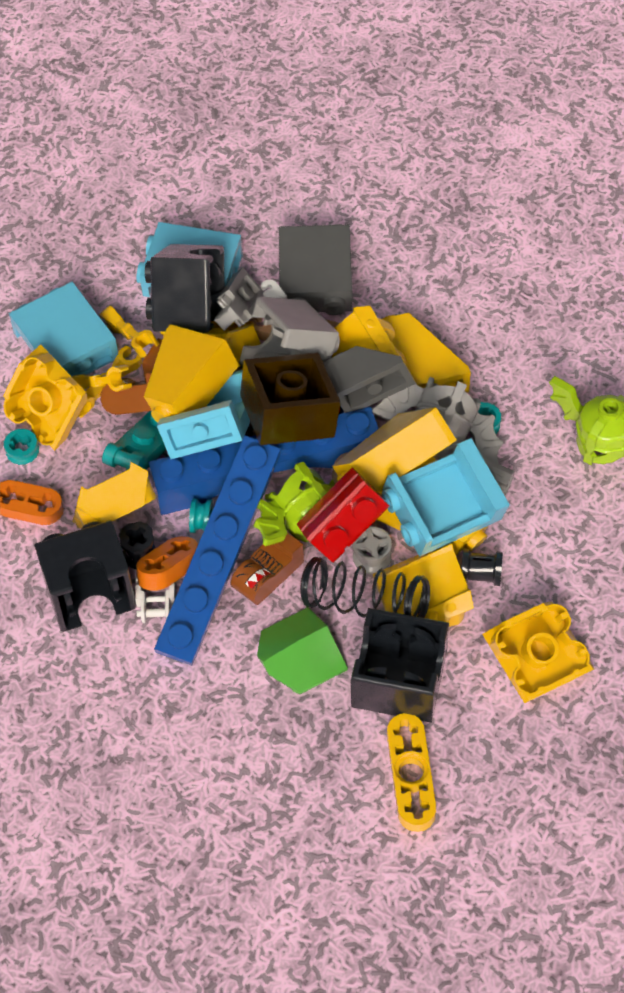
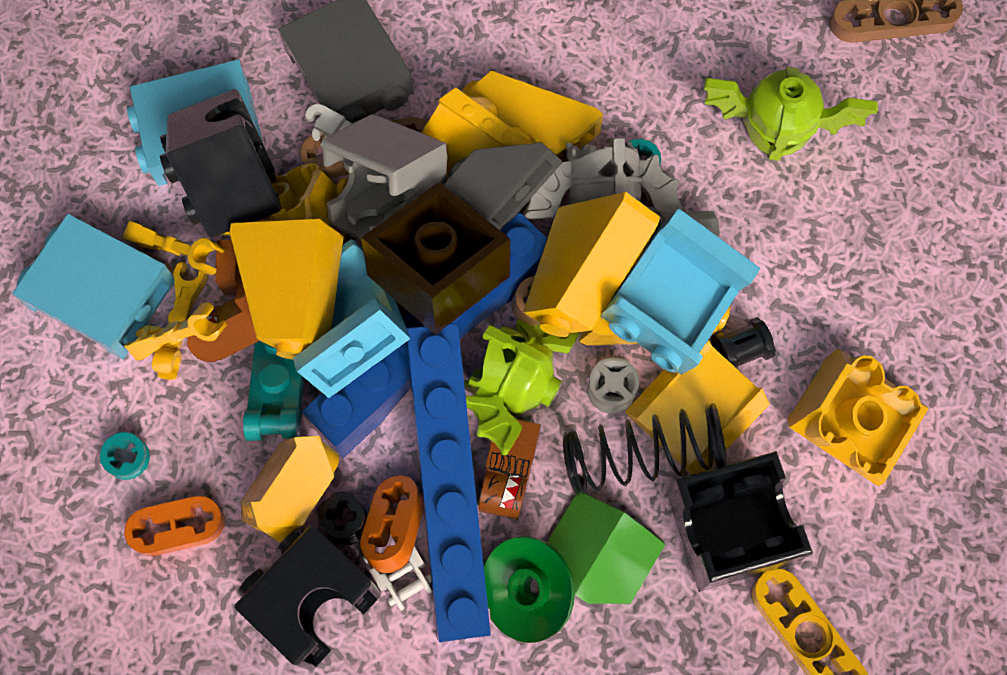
camera: 30 degrees left, 15 degrees up
(44, 397) = (120, 384): yellow slope -> none
(199, 514) = (395, 441): teal bush -> none
(232, 644) = (509, 596): none -> green dish
(238, 300) = (286, 146): light grey hinge -> none
(342, 515) = (580, 375): red brick -> none

